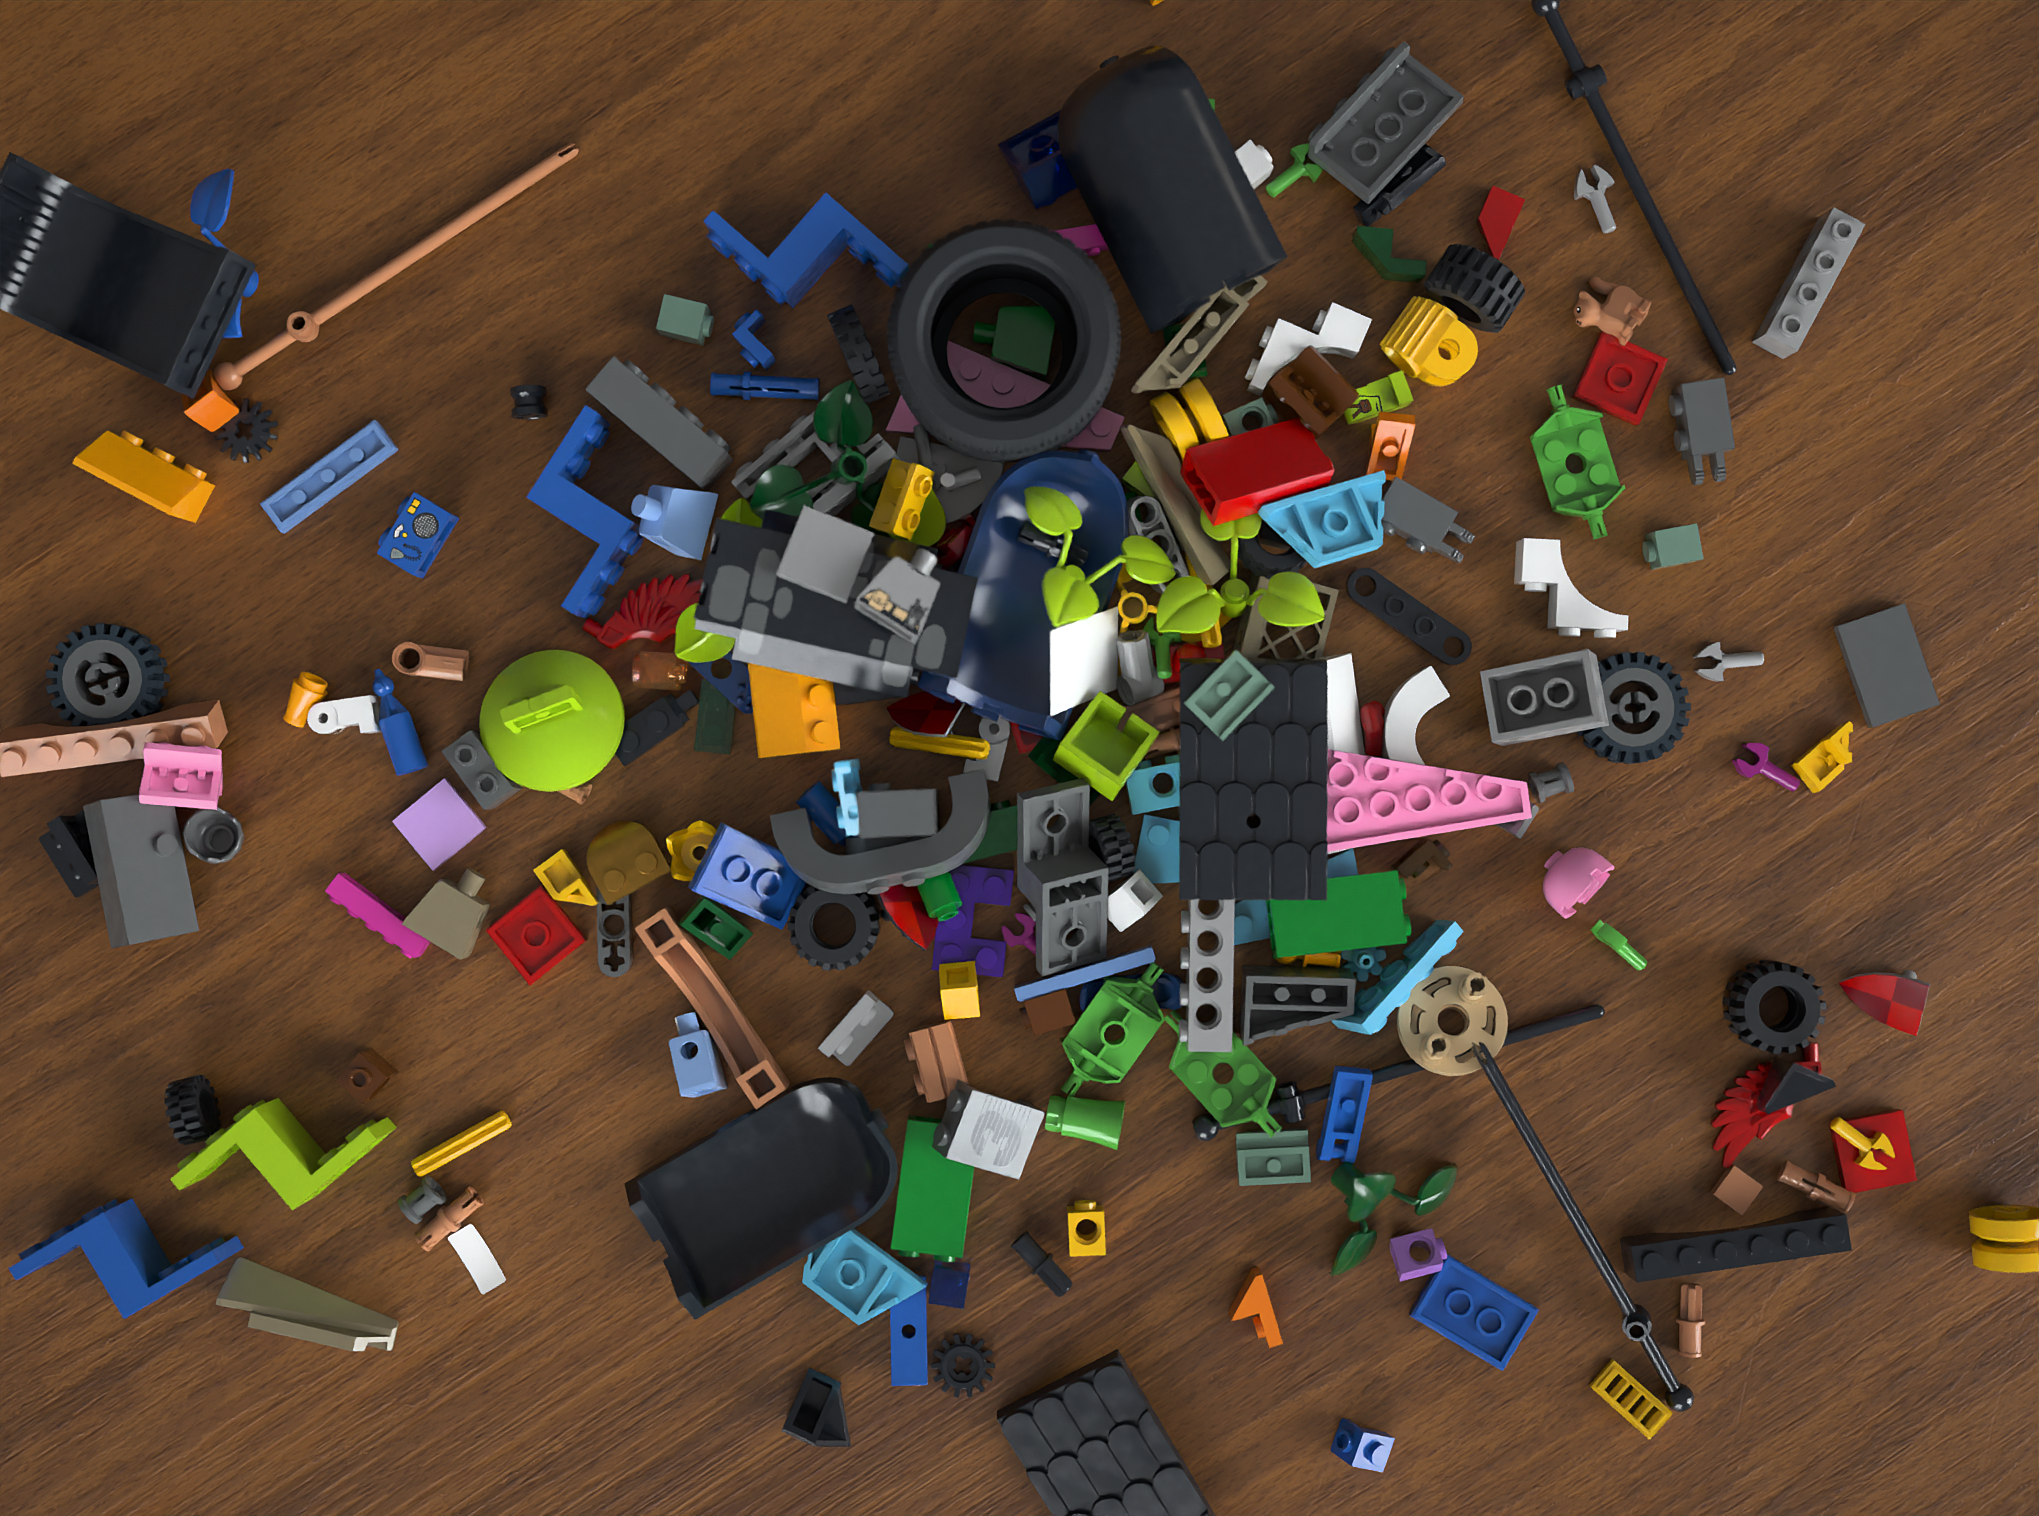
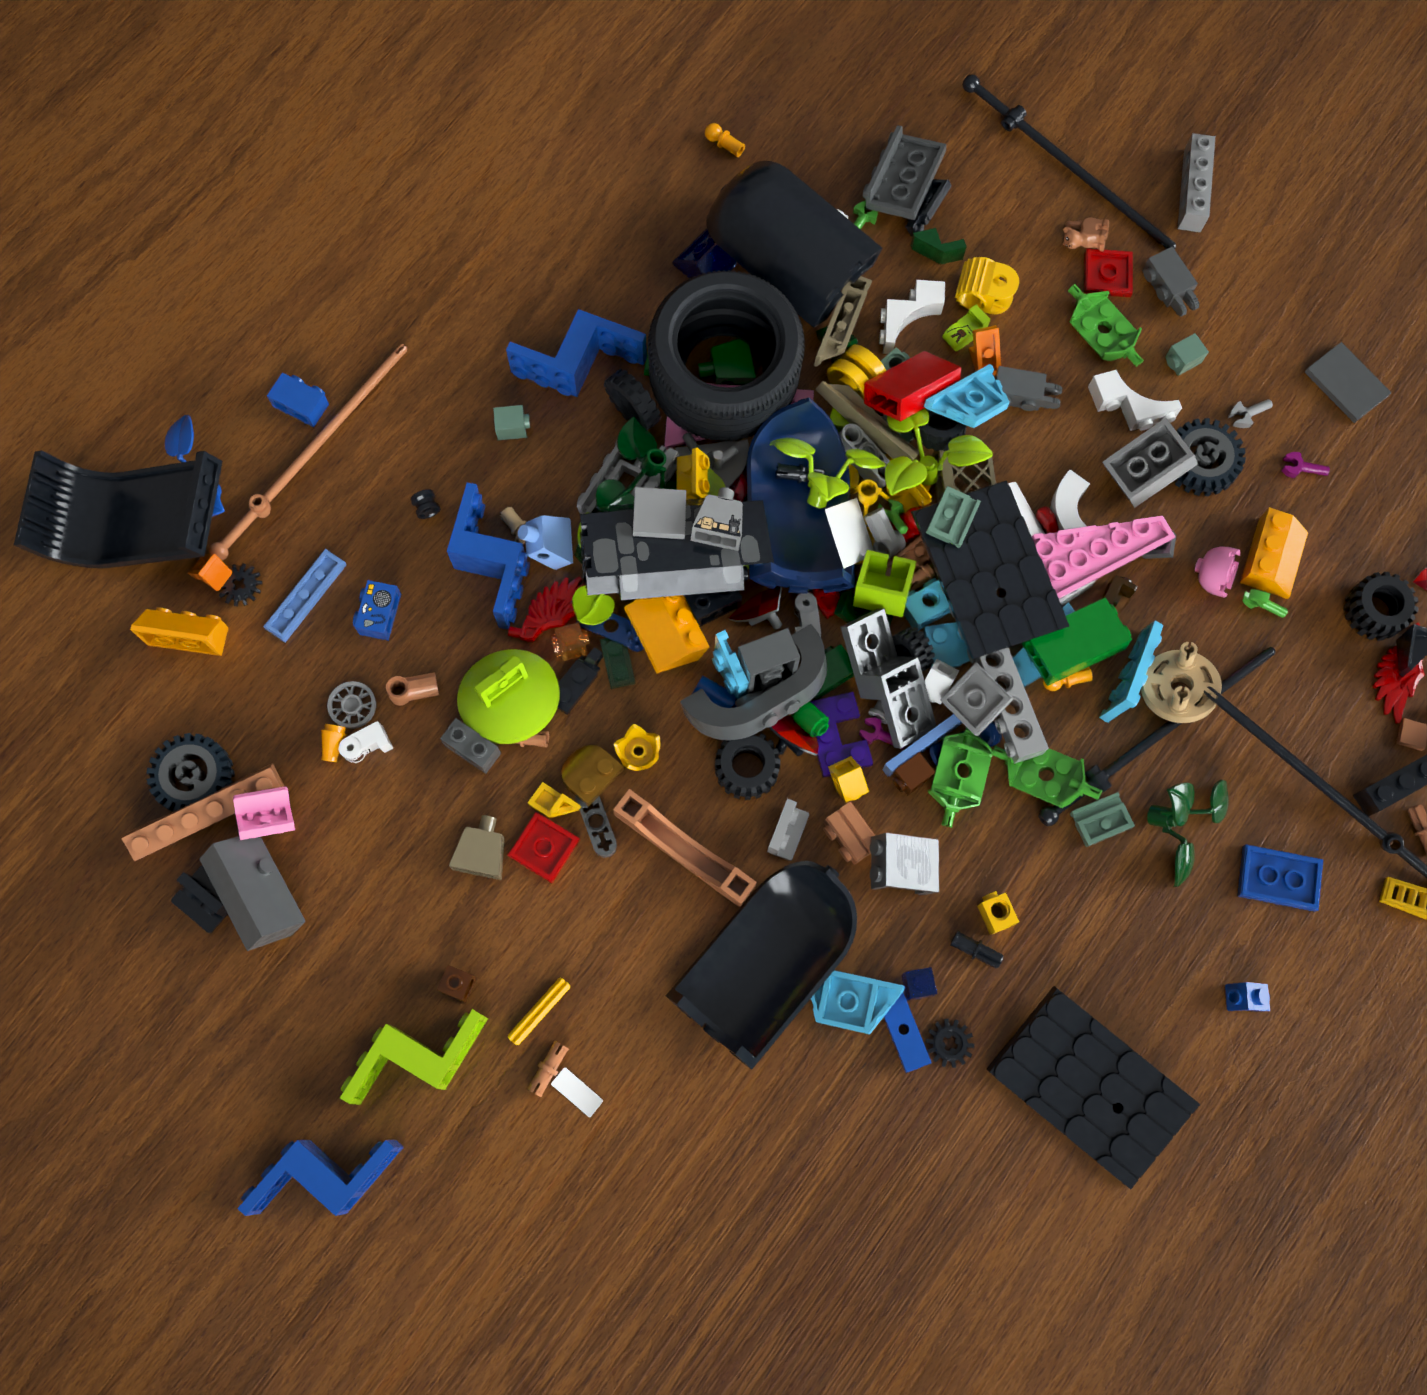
camera: 20 degrees left, 15 degrees down
(192, 1109) = (338, 1050): black tyre -> none
(213, 835) = (296, 853): dark grey hair -> none
(303, 1311) = (463, 1174): dark tan wedge -> none
(346, 654) = (351, 705): none -> light grey wheel
(376, 914) = (429, 871): dark pink piece -> none
(398, 729) = (404, 740): blue wheel -> none
(400, 182) = (298, 399): none -> blue brick
(422, 1199) = (524, 1060): dark grey bush -> none
(439, 824) = (451, 796): lavender piece -> none
(642, 470) = (513, 521): none -> tan pin
(668, 430) = (518, 484): dark grey brick -> none
(703, 1072) = (686, 889): light blue torso -> none
(716, 927) = (667, 794): dark green slope -> none
(748, 876) = (679, 751): tile -> none
(753, 350) = (559, 423): blue bracket -> none
(764, 386) = (548, 454): blue pin -> none
(818, 1413) = (861, 1111): black slope -> none
(930, 1197) = (883, 927): green brick -> none
(950, 745) = (773, 623): yellow axle -> none
(1086, 1119) = (968, 836): bright green plant -> none
(1164, 951) = (976, 699): none -> light grey tile
(1255, 1300) = (1132, 918): orange slope -> none
(1292, 997) = (1071, 707): dark grey wedge -> none
(1311, 391) = (925, 333): reddish brown bracket -> none
(1344, 1114) = (1138, 772): blue plate -> none
(1355, 961) = (1105, 672): medium azure plant -> none
(1408, 616) = (1041, 450): black plate -> none
(1408, 1267) = (1222, 857): medium lavender brick -> none
(1475, 287) = (1001, 239): black tyre -> none
(1498, 218) = (995, 208): red tile -> none
(1541, 789) = (1178, 516): dark grey bush -> none
(1596, 196) = (1047, 177): light grey bar -> none
(1665, 880) = (1275, 553): none -> light orange slope
(1825, 758) = (1338, 449): yellow slope -> none

